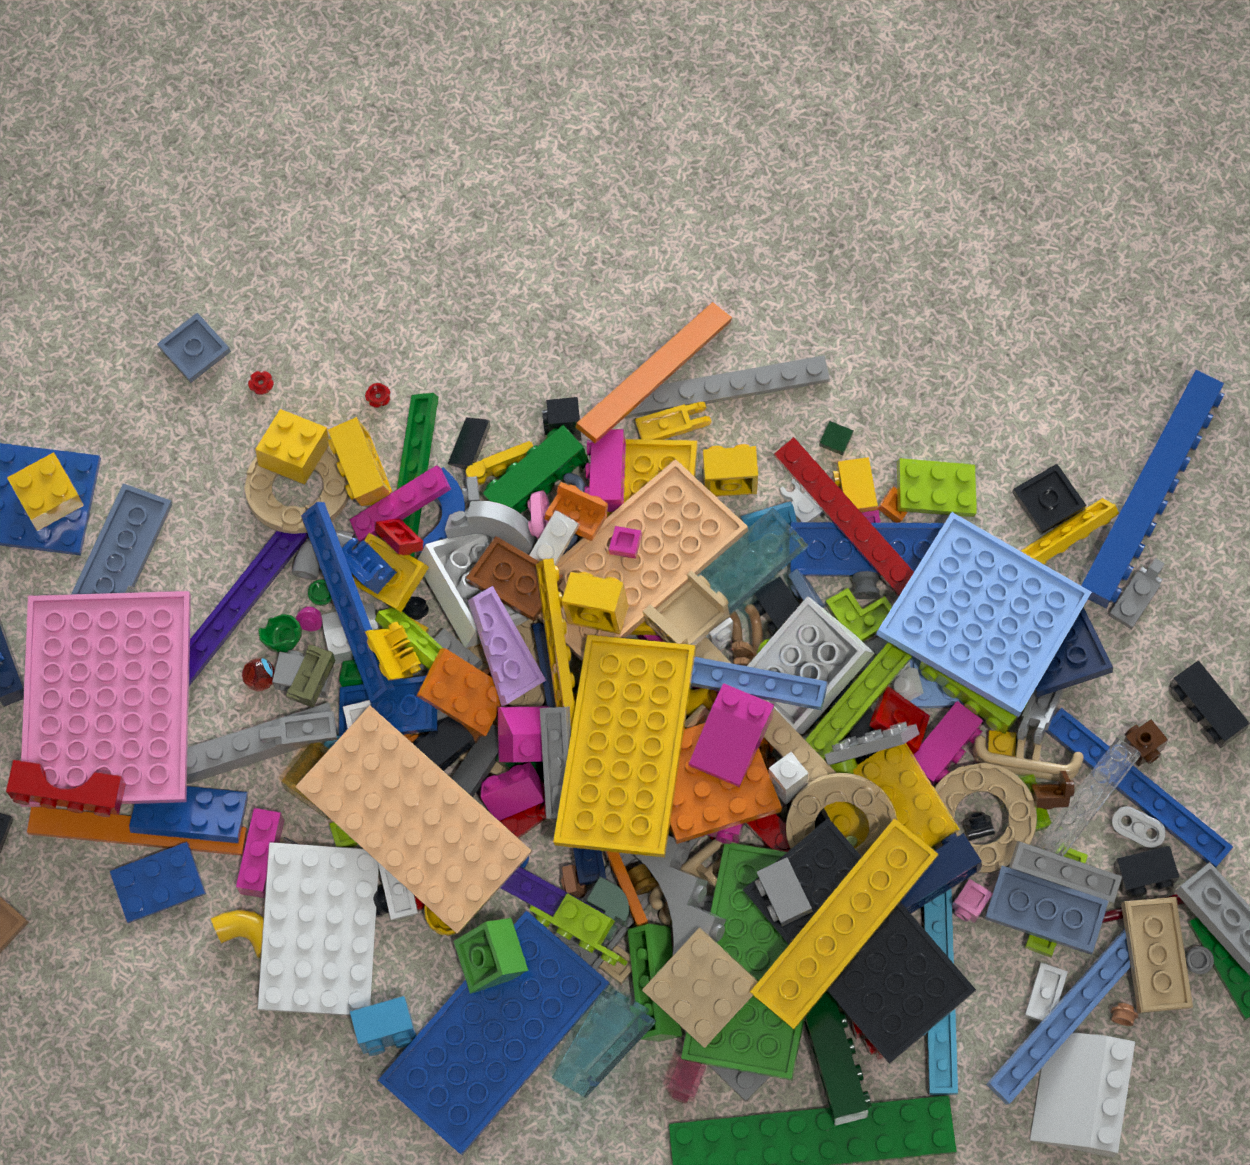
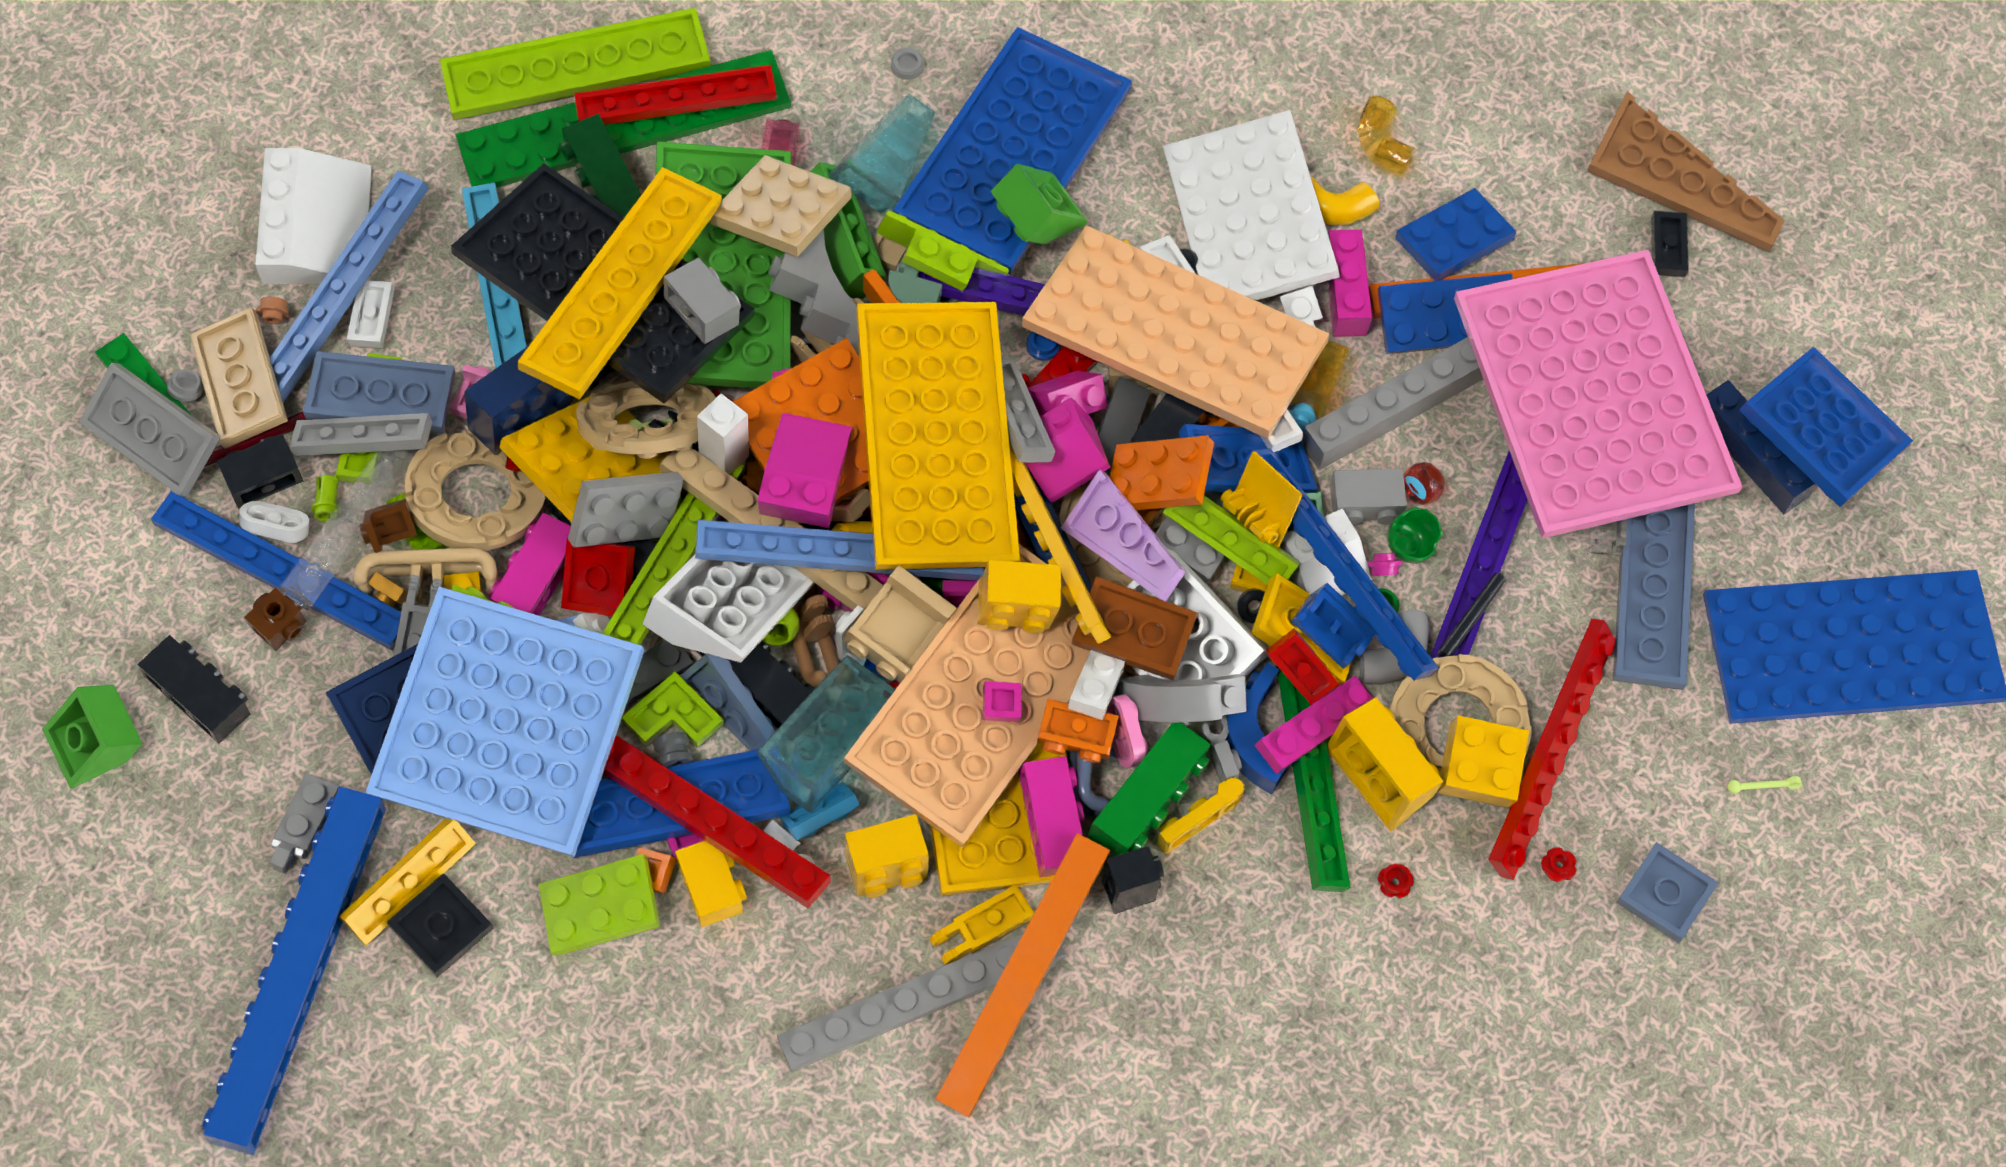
camera: 160 degrees right, 5 degrees down
(45, 491) = (1779, 638): yellow brick -> none
(100, 794) = (1641, 261): red arch -> none
(116, 412) = (1793, 782): none -> yellowish green hinge
(191, 981) = (1378, 141): none -> clear yellow cylinder
(228, 466) = (1552, 749): none -> red plate
(260, 561) = (1472, 615): none -> black bar
(300, 730) = (1345, 400): light grey hinge -> none
(302, 831) = (1302, 305): none -> white plate
(311, 676) = (1356, 474): olive hinge -> none
(383, 1026) = (1141, 123): dark azure brick -> none
(469, 442) = (1251, 840): black slope -> none
(561, 1145) = (907, 63): none -> light grey tile
(766, 1136) = (678, 95): none -> red plate
(836, 438) = (751, 954): dark green tile -> none
(978, 826) = (479, 489): black plate -> none
(1055, 750) = (387, 590): none -> pearl gold plate
(1097, 840) = (325, 497): none -> lime pin

